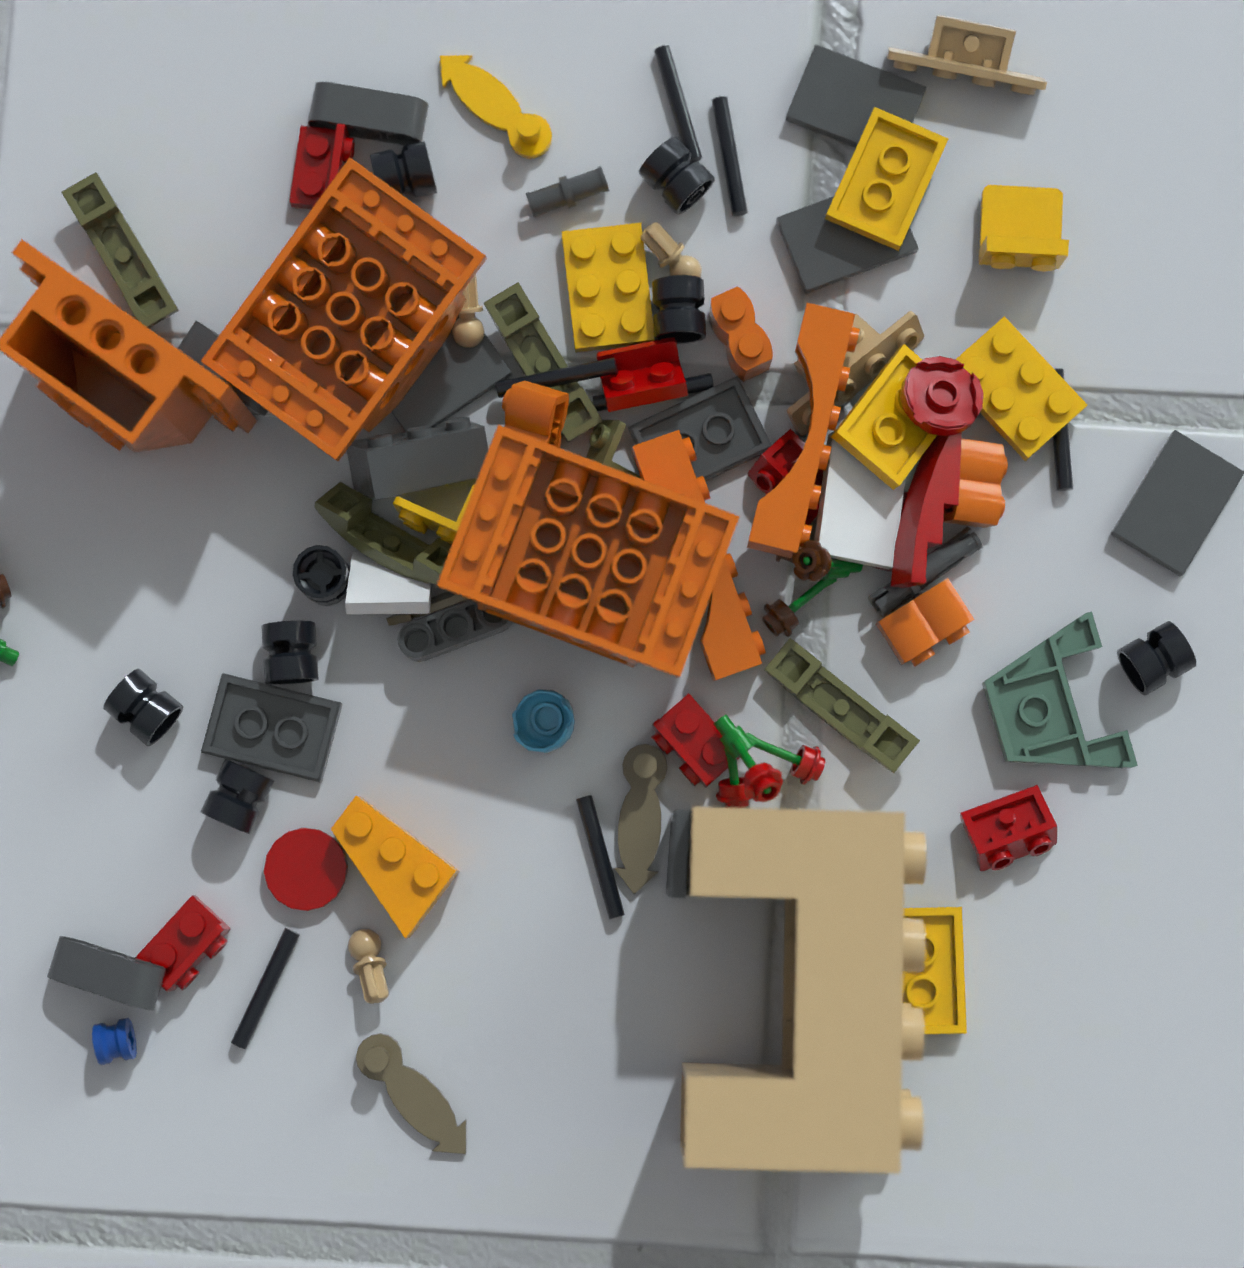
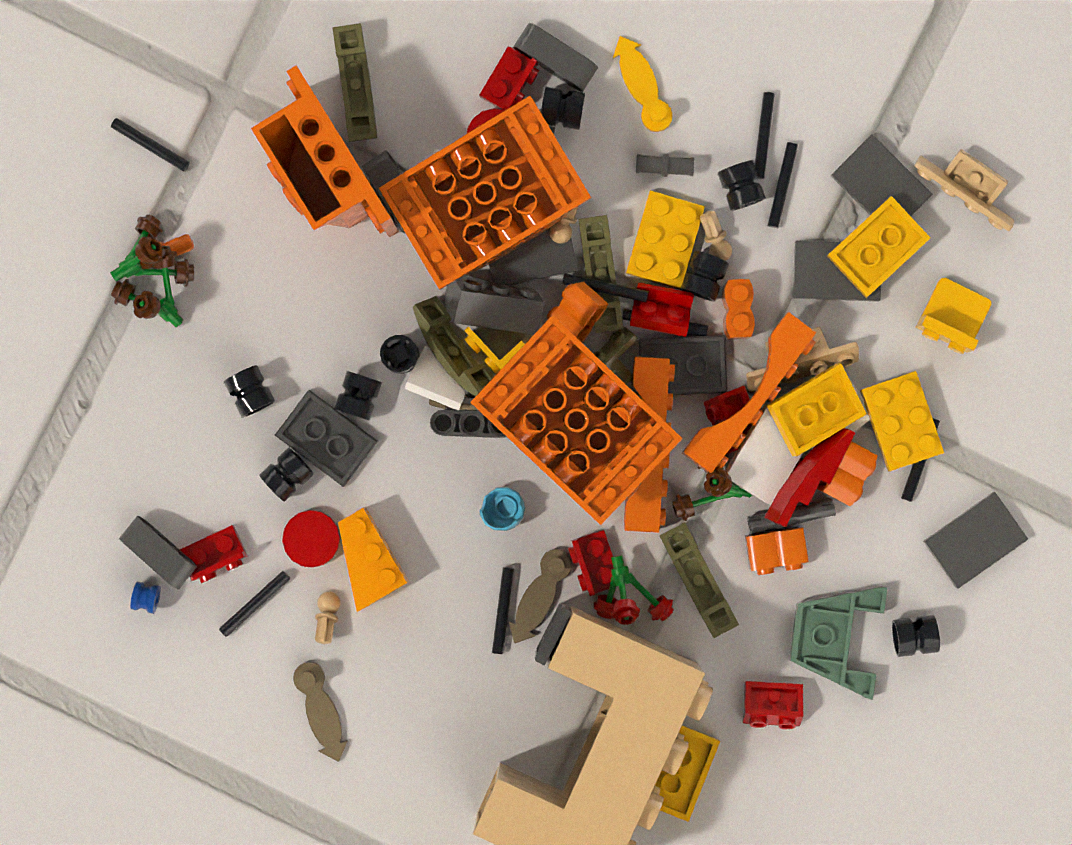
camera: 25 degrees right, 5 degrees up
(941, 396) = (850, 409): red tile -> none

